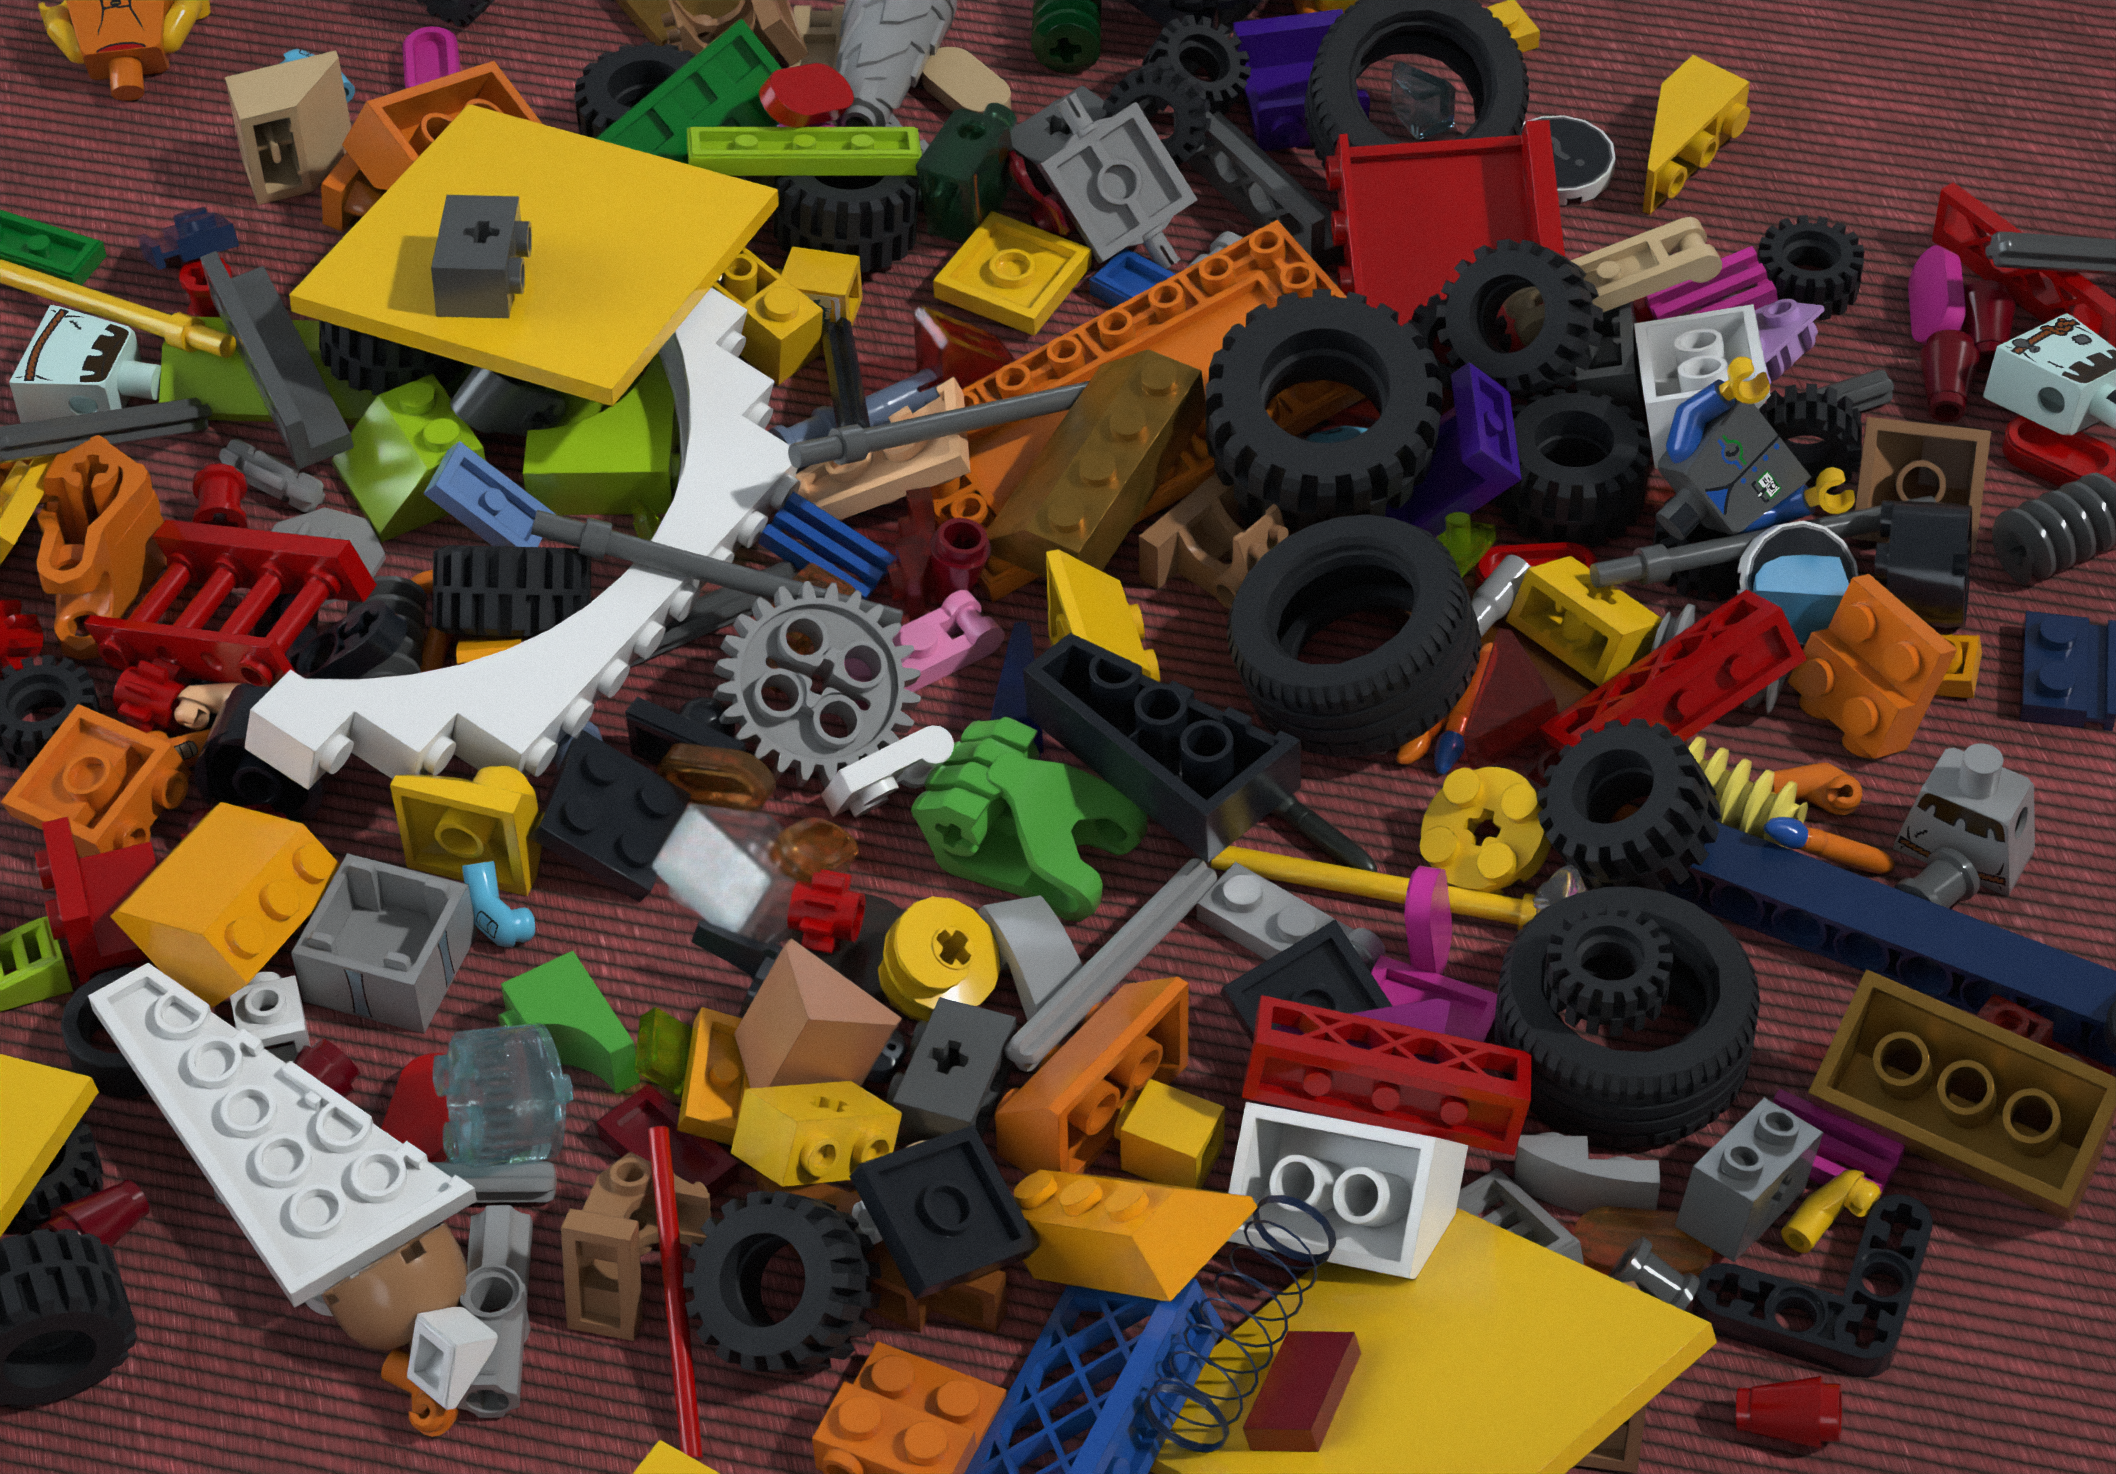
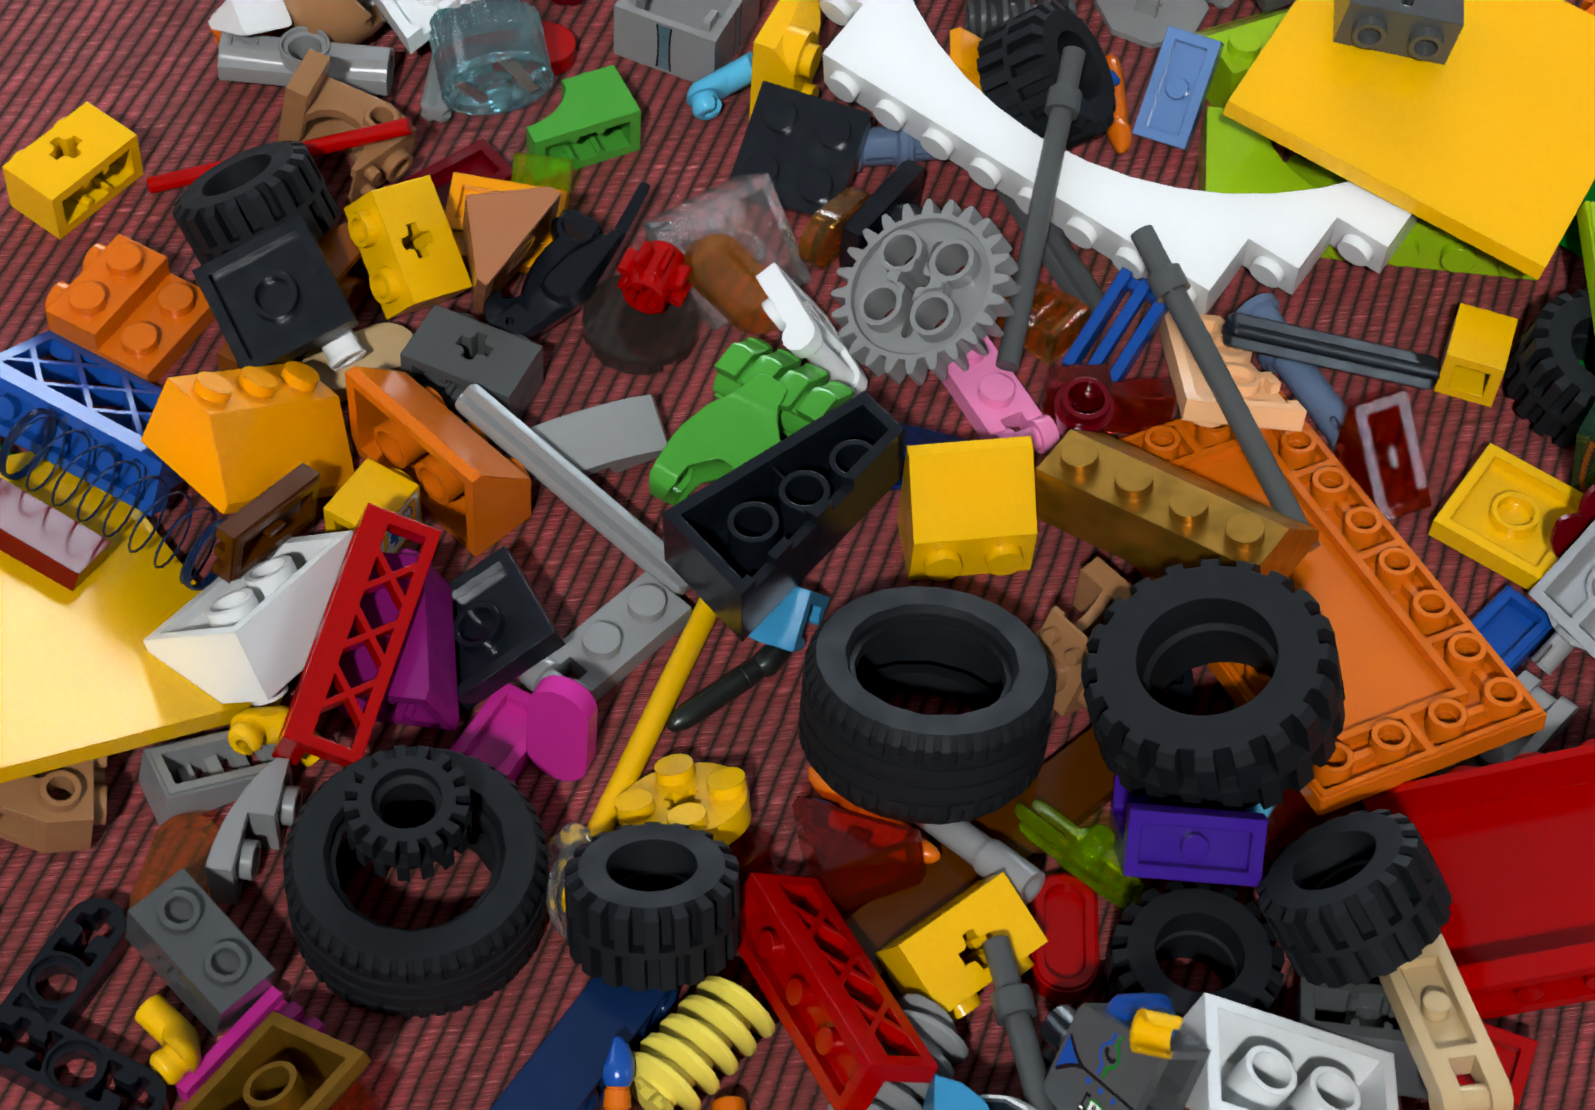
camera: 90 degrees right, 5 degrees up
(780, 320) = (1423, 298): yellow slope -> none
(936, 953) = (603, 333): yellow piece -> none
(1227, 1172) = (266, 522): none -> reddish brown tile
(1477, 1189) = (259, 727): none -> yellow arm
(1654, 1275) = (112, 857): dark grey bush -> none

